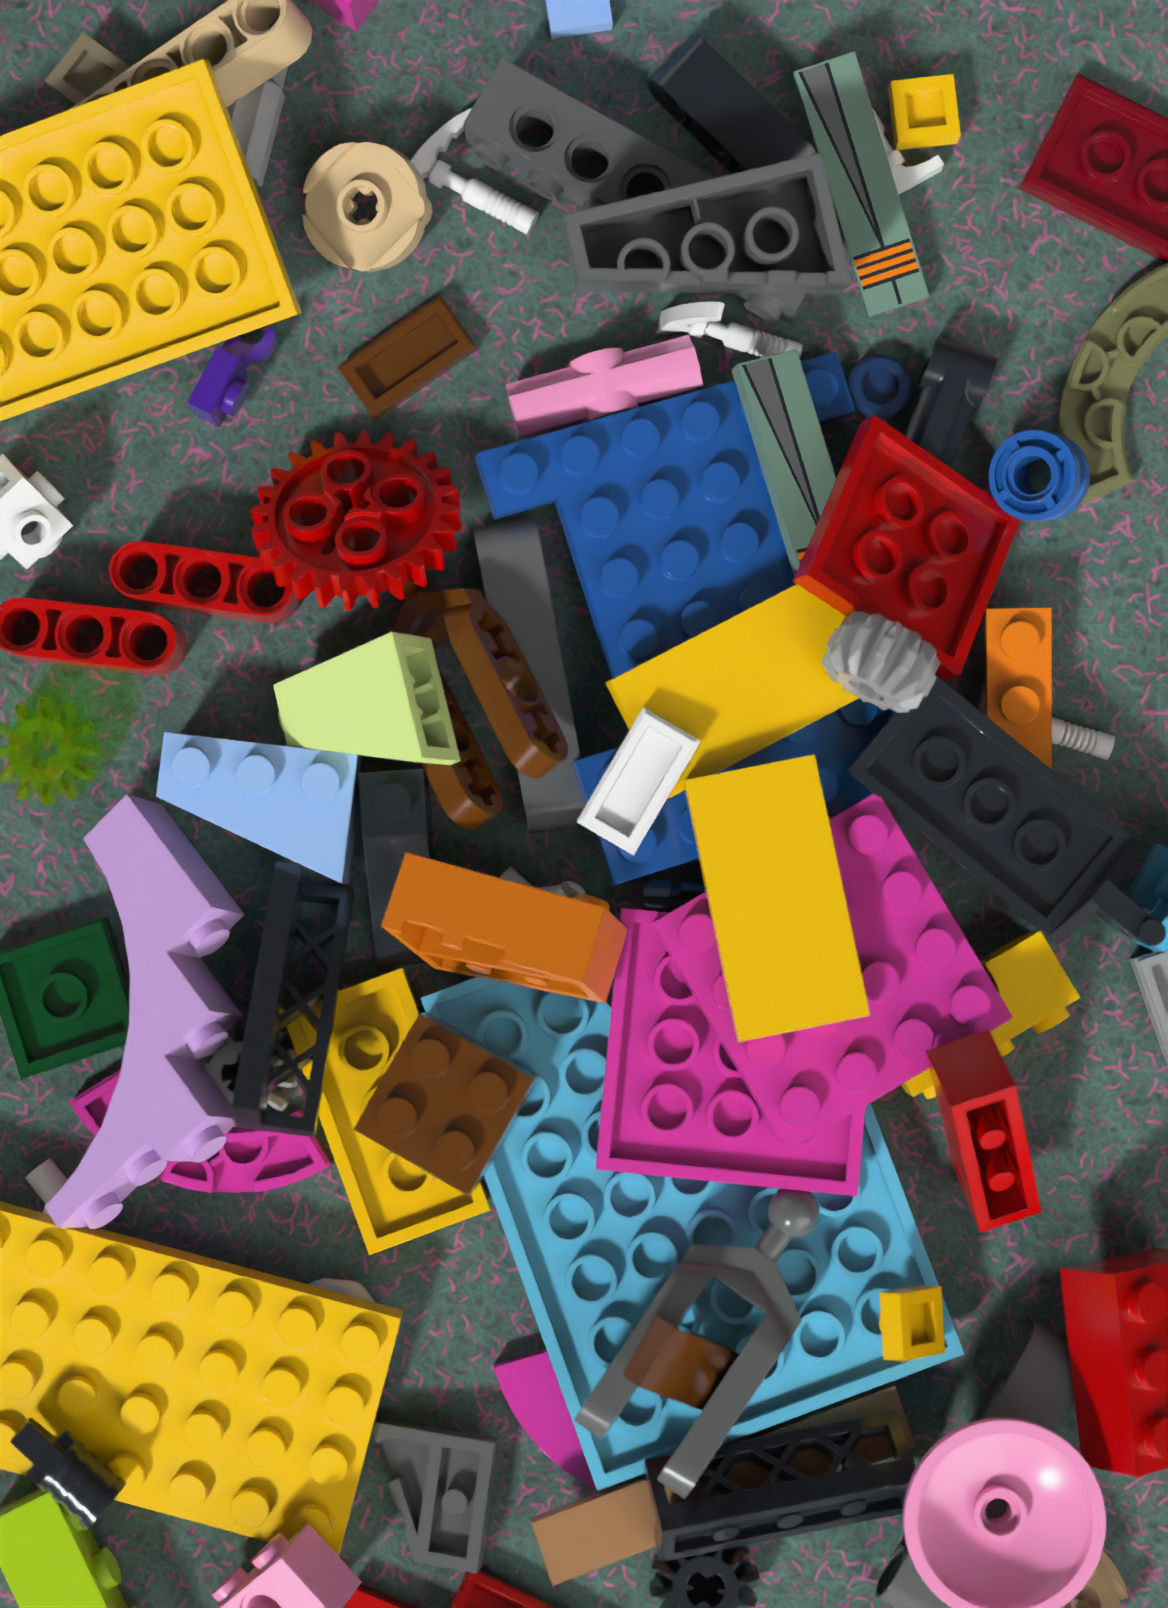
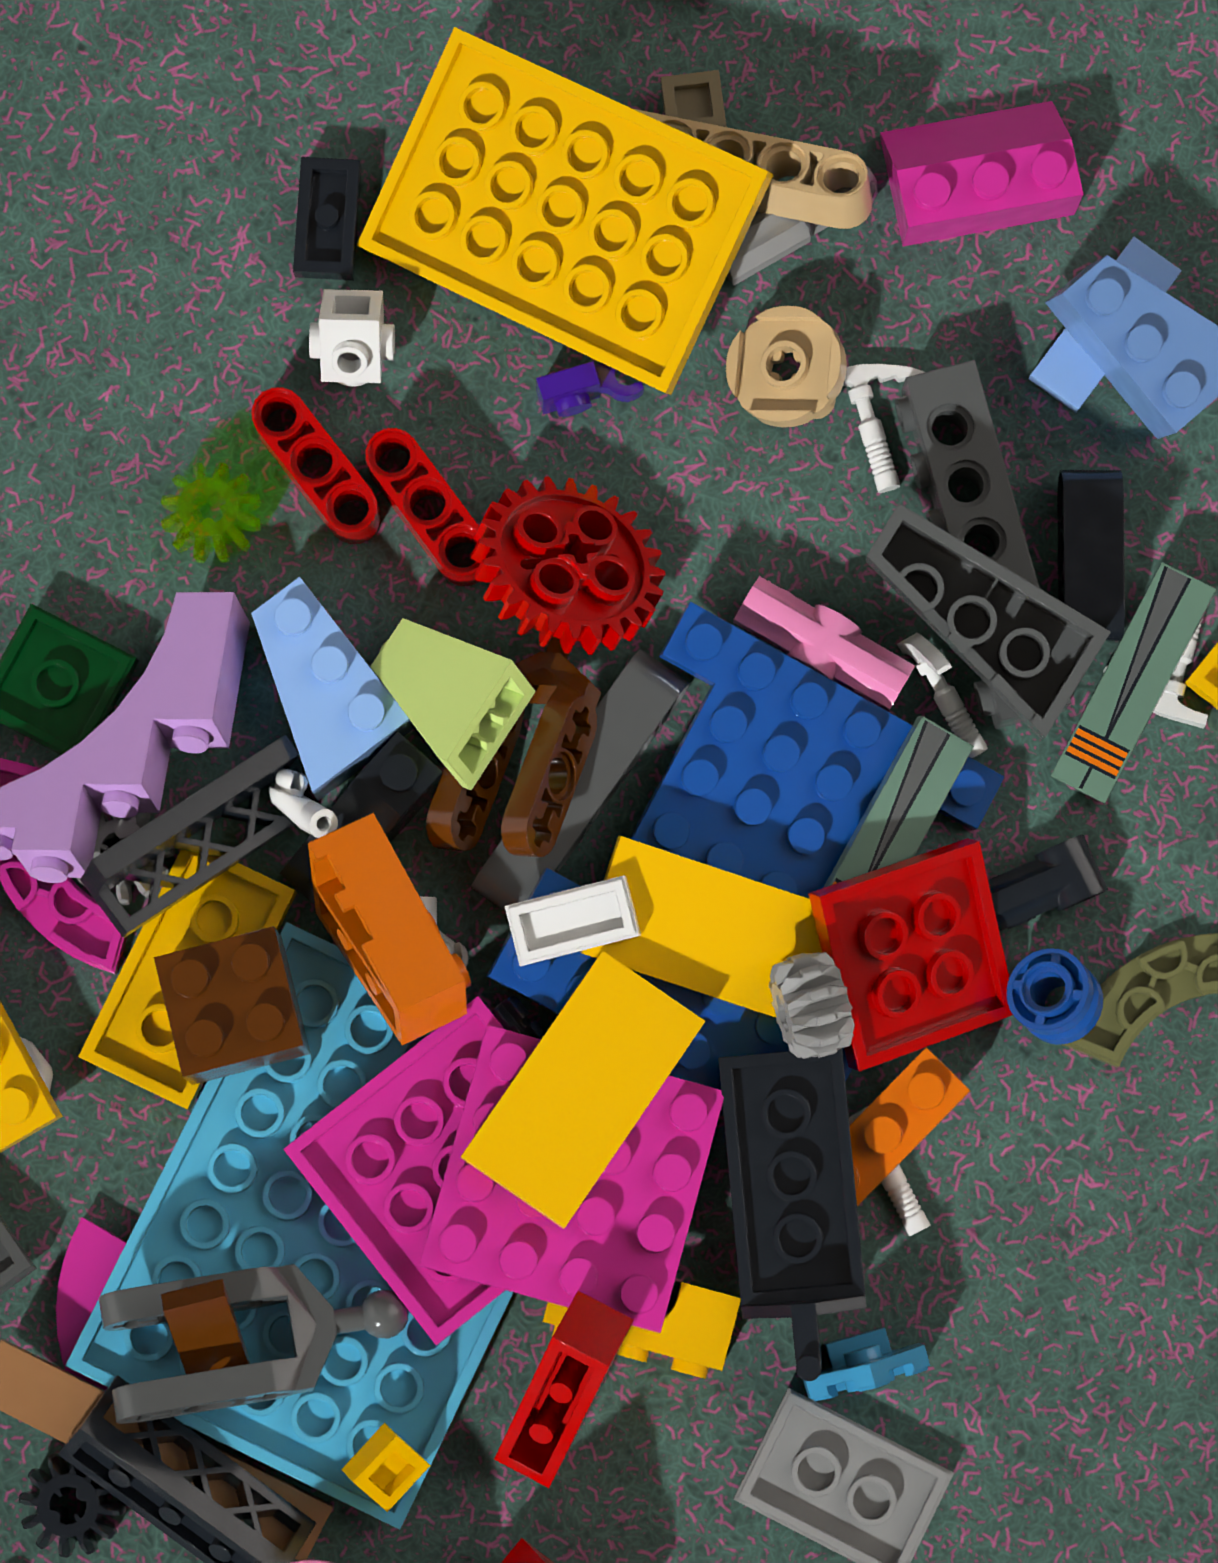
camera: 45 degrees right, 5 degrees down
(346, 904) = (304, 812): none -> white arm
(407, 358) = (714, 493): reddish brown tile -> none
(879, 387) = (1010, 830): dark blue tile -> none

